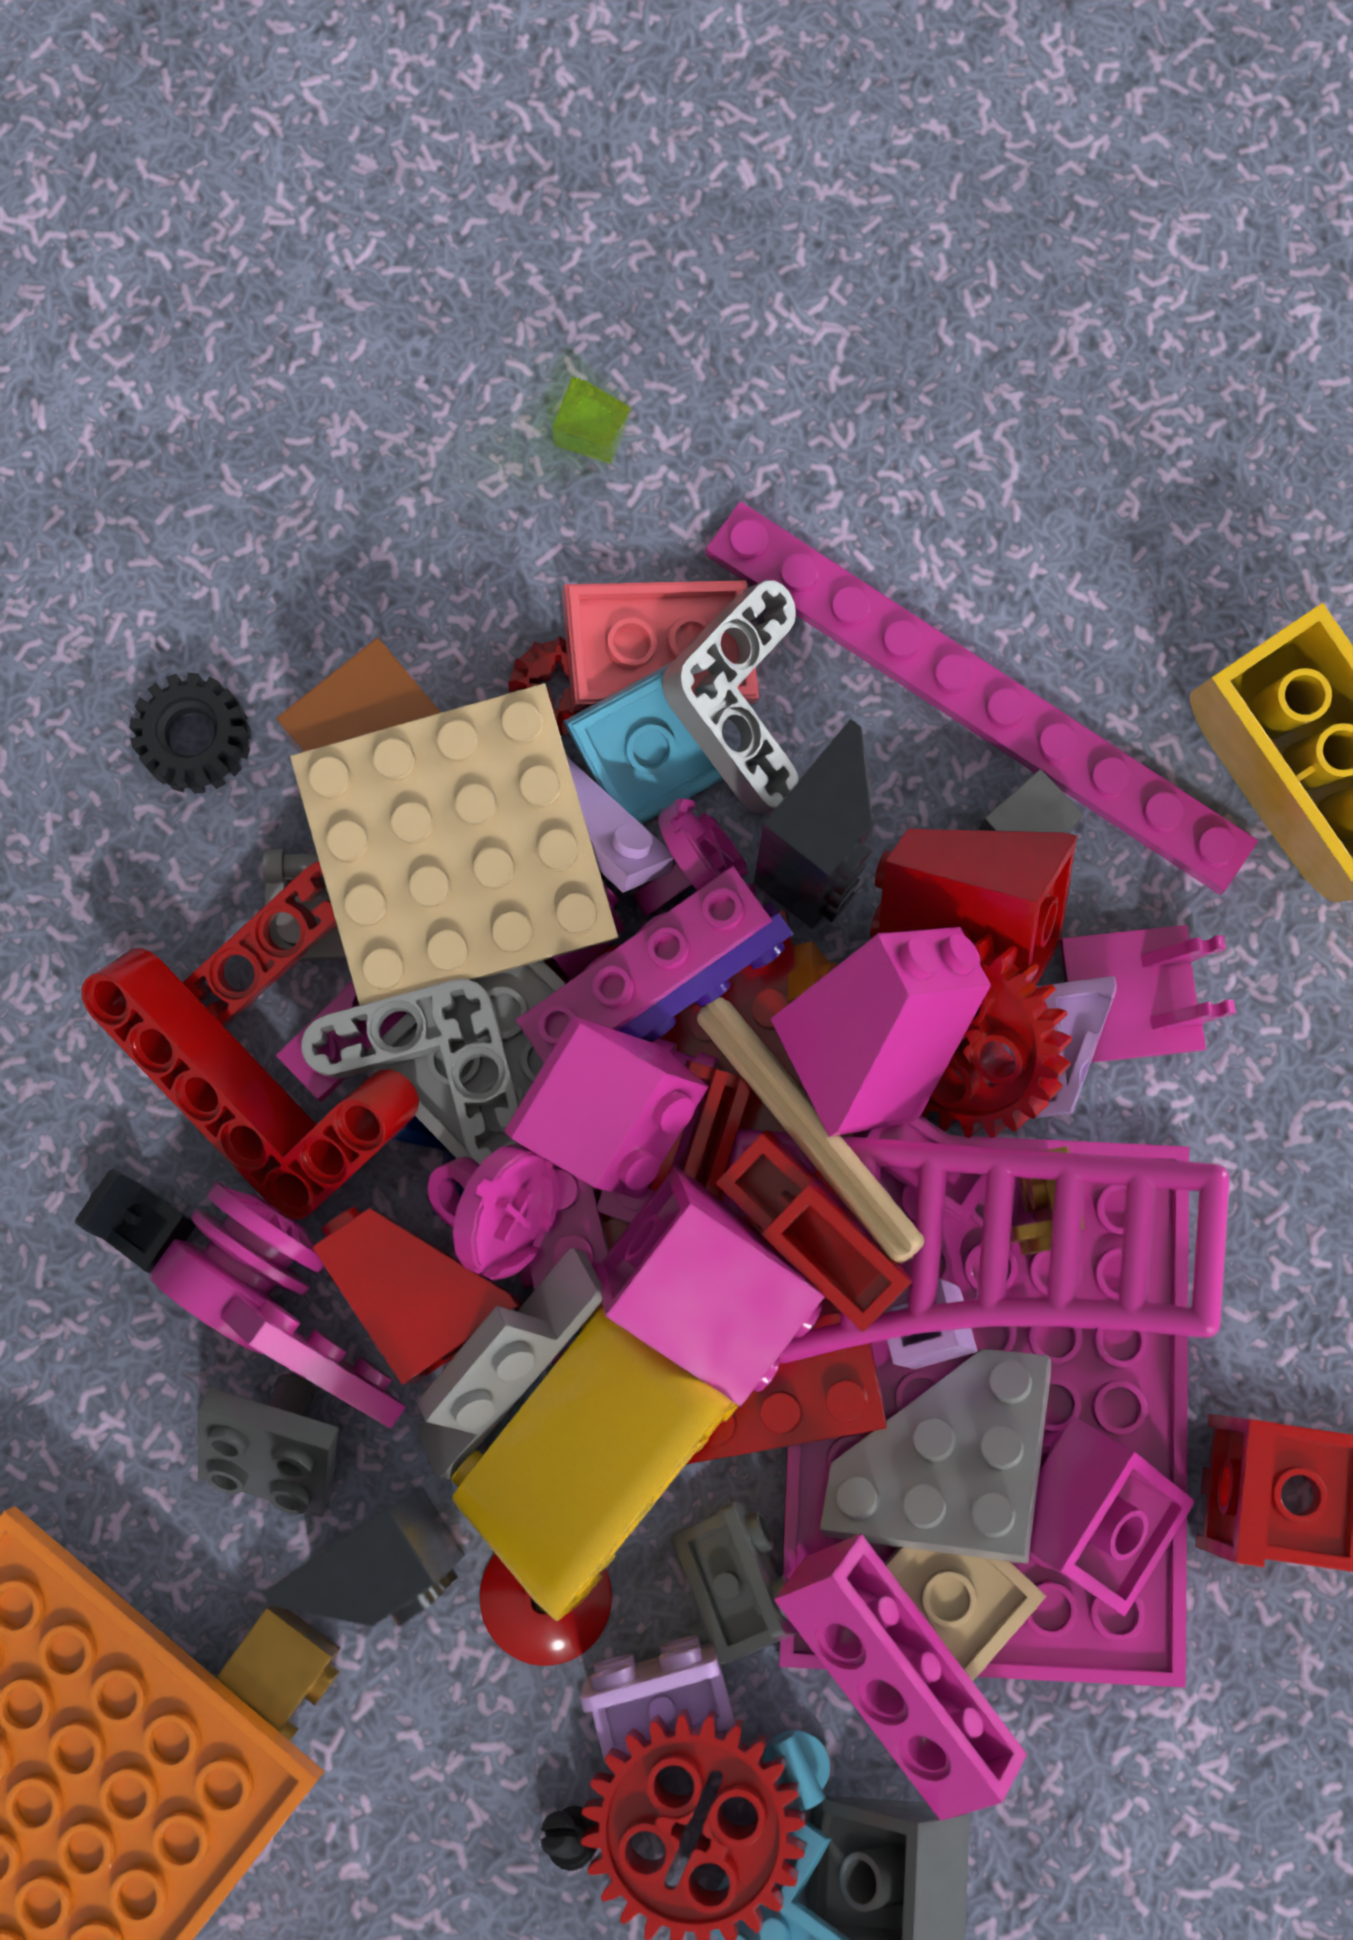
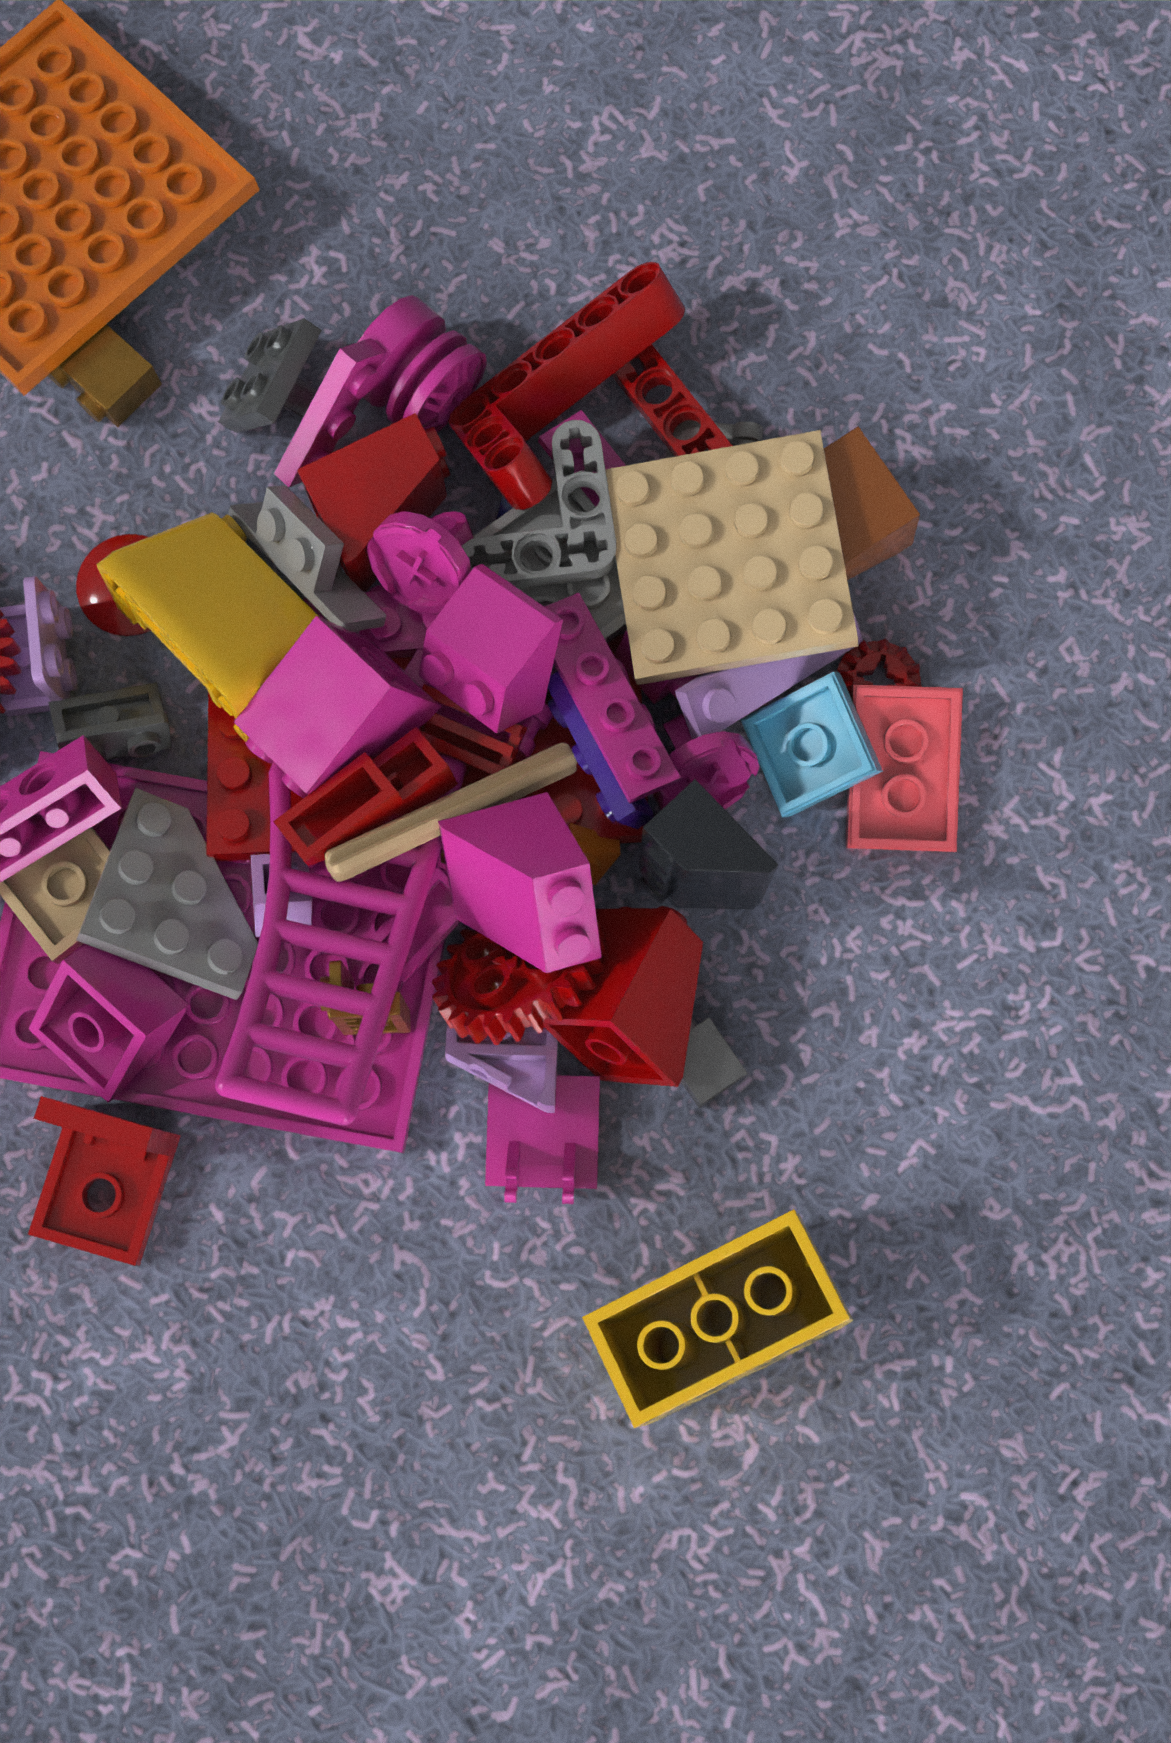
camera: 100 degrees right, 0 degrees up
(133, 1219) = (471, 298): black bracket -> none
(170, 704) = (872, 348): black tyre -> none
(378, 1570) = (157, 437): black slope -> none
(590, 421) = (1119, 736): clear neon green slope -> none
(721, 700) = (846, 803): light grey beam -> none
(985, 700) = (825, 1043): dark pink plate -> none

